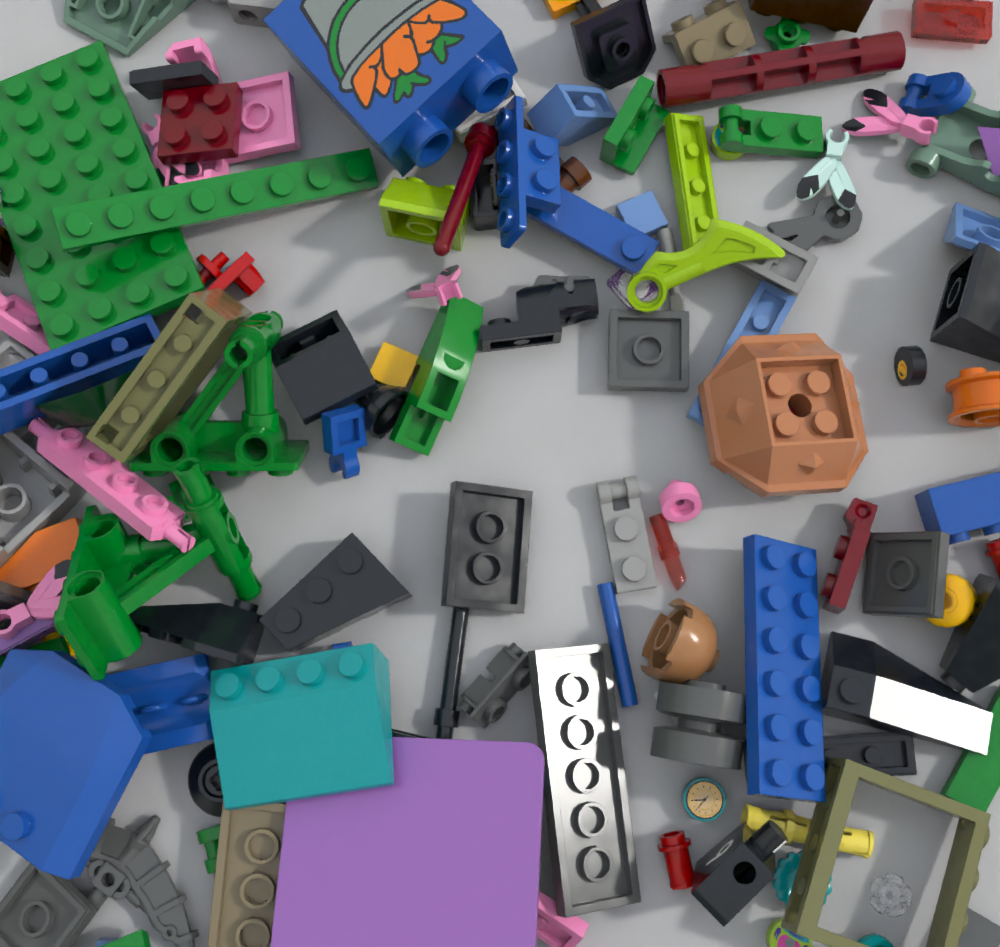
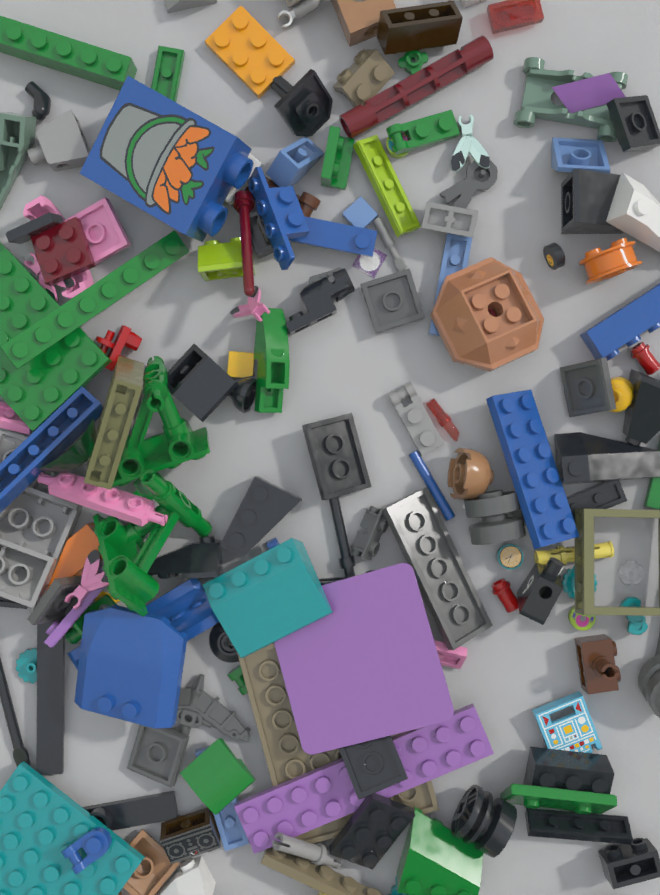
camera: 20 degrees left, 10 degrees up
(342, 436) = (227, 419): blue plate -> none
(680, 501) = (441, 388): bright pink tile -> none
(719, 246) = (416, 224): lime piece -> none
(849, 552) = (551, 385): dark red hinge -> none
(890, 120) = (495, 97): bright pink piece -> none
(944, 94) = (525, 68): blue plate -> none

